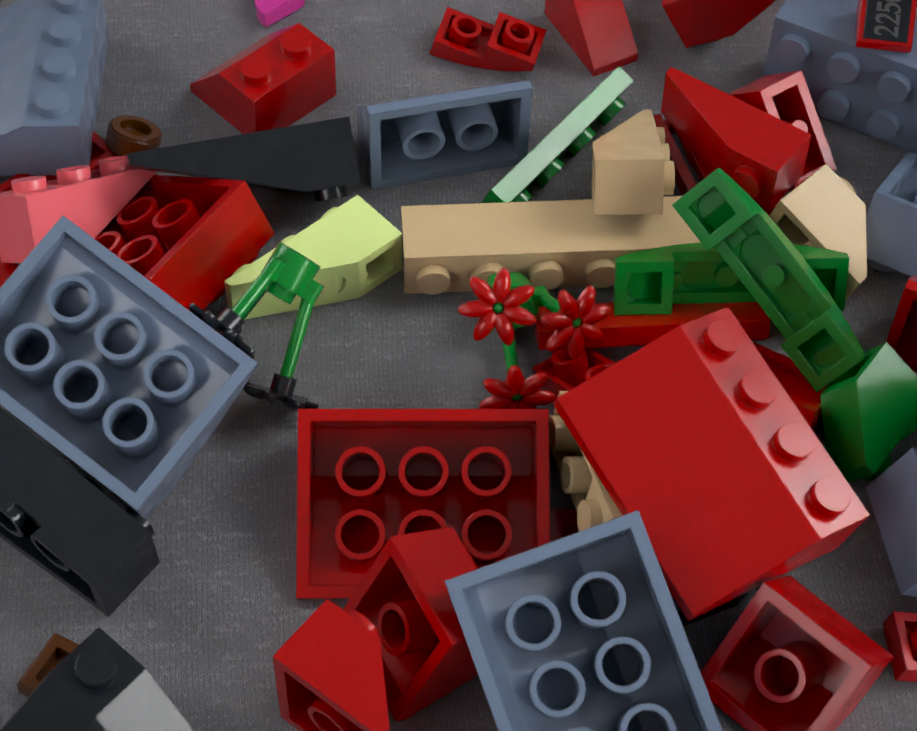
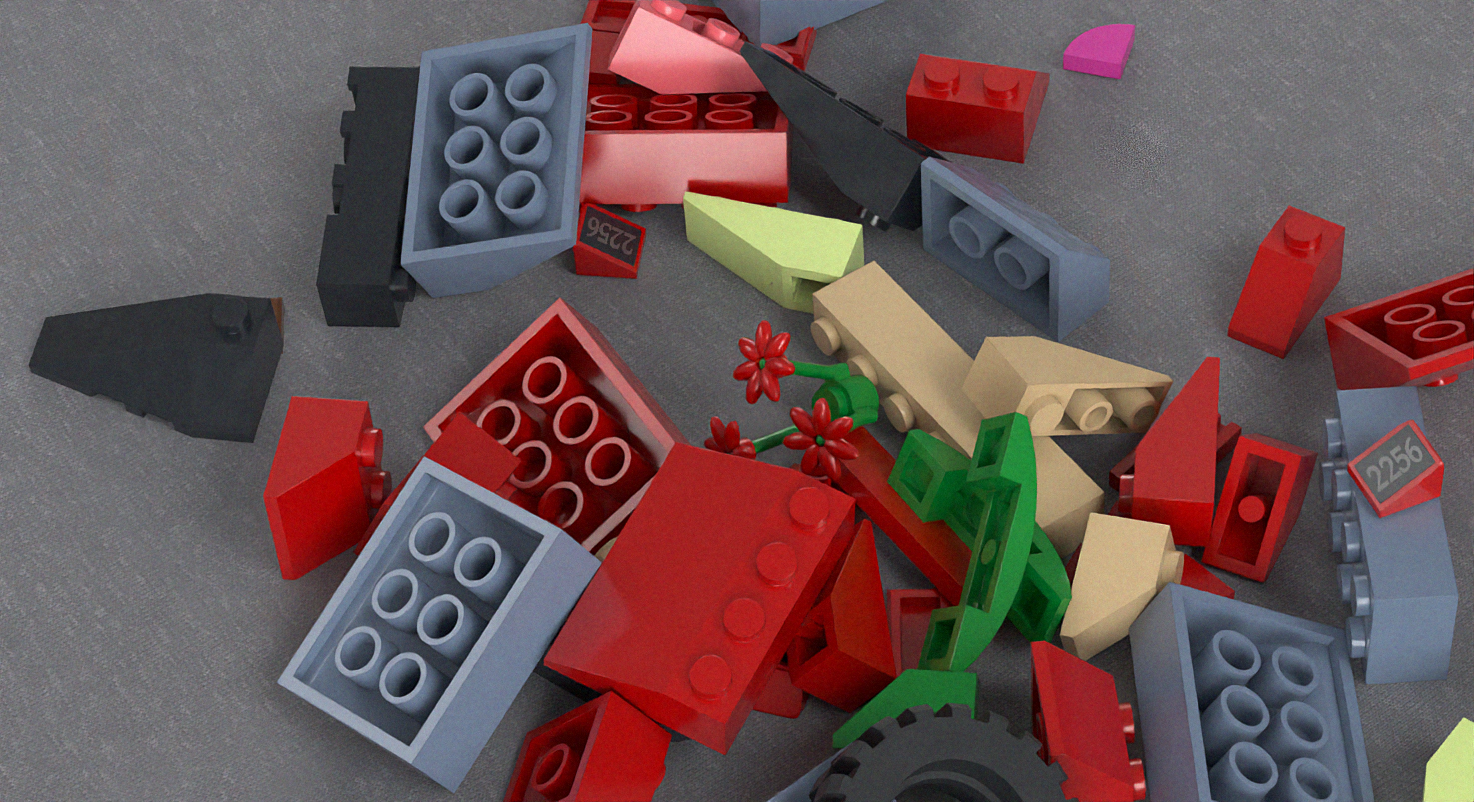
camera: 65 degrees right, 5 degrees down
(131, 135) = (827, 54): reddish brown tile -> none
(283, 276) = (686, 214): green plant -> none
(472, 42) = (1186, 229): red slope -> none
(569, 135) = (1160, 346): plate -> none

